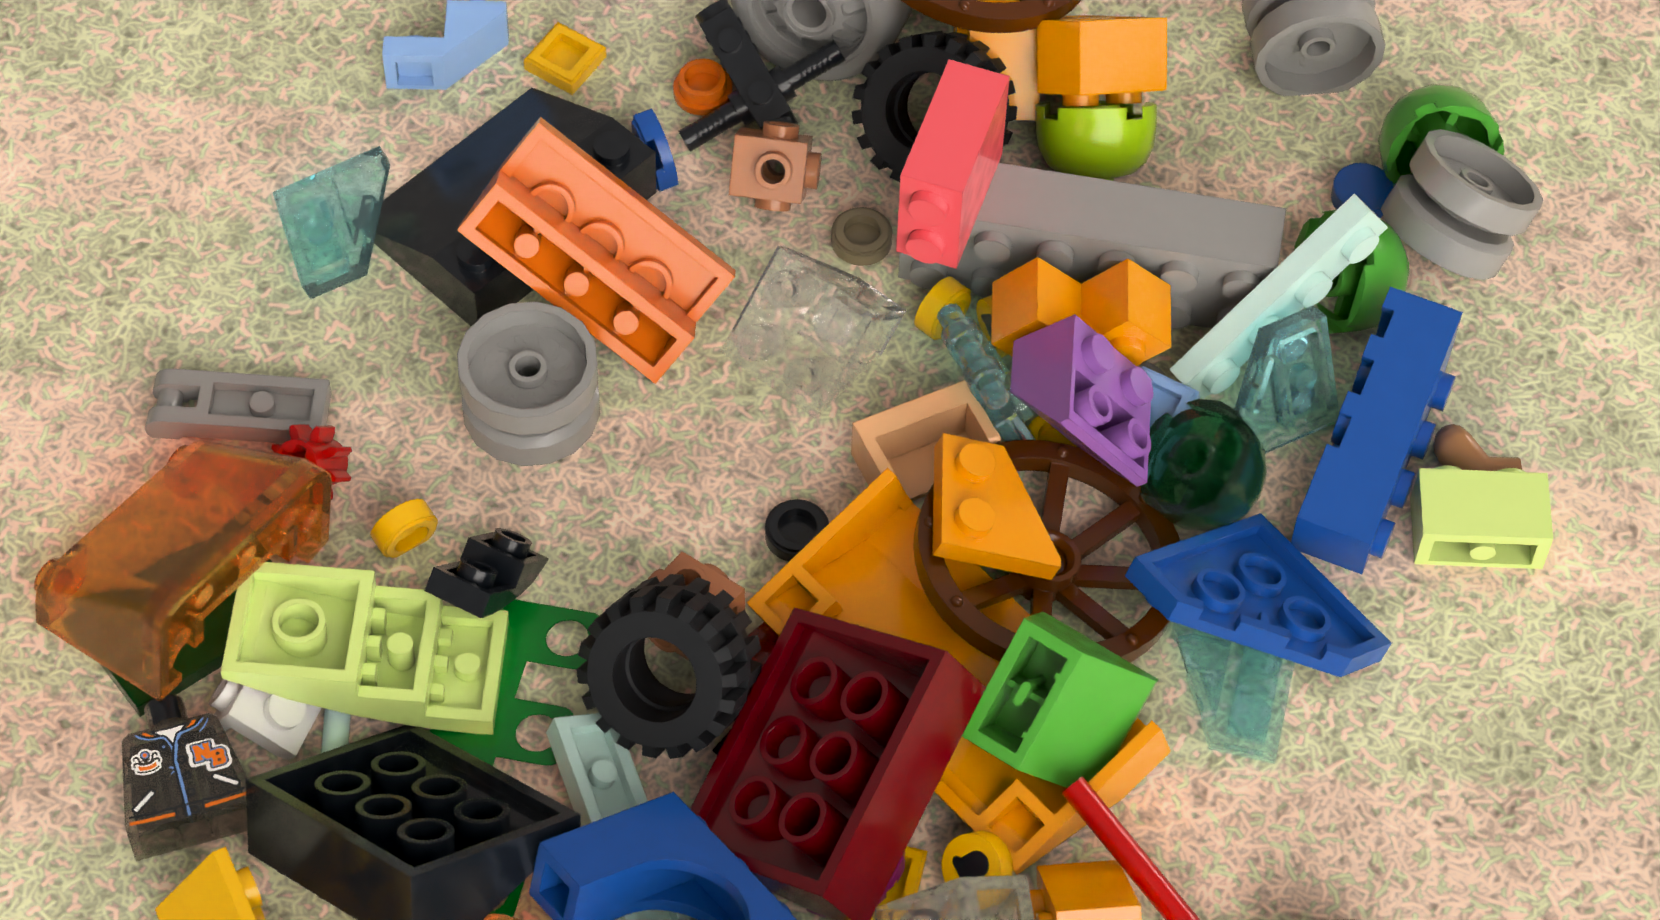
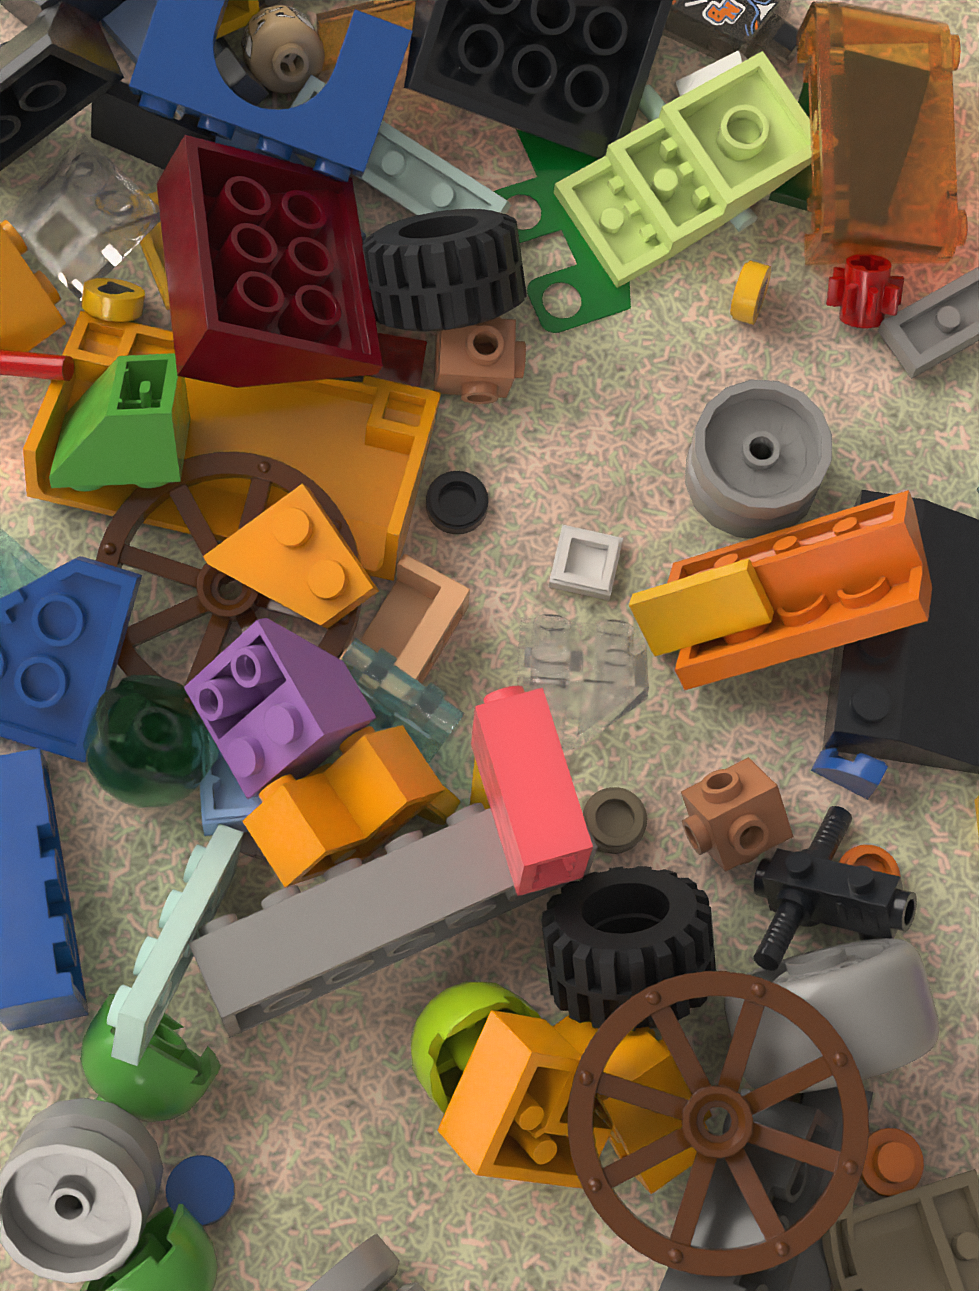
camera: 140 degrees right, 15 degrees up
(489, 573) = (655, 288): black slope -> none
(676, 301) = (701, 607): none -> yellow tile
(728, 422) = (585, 562): none -> white tile
(1290, 380) = (132, 883): clear light blue wing -> none

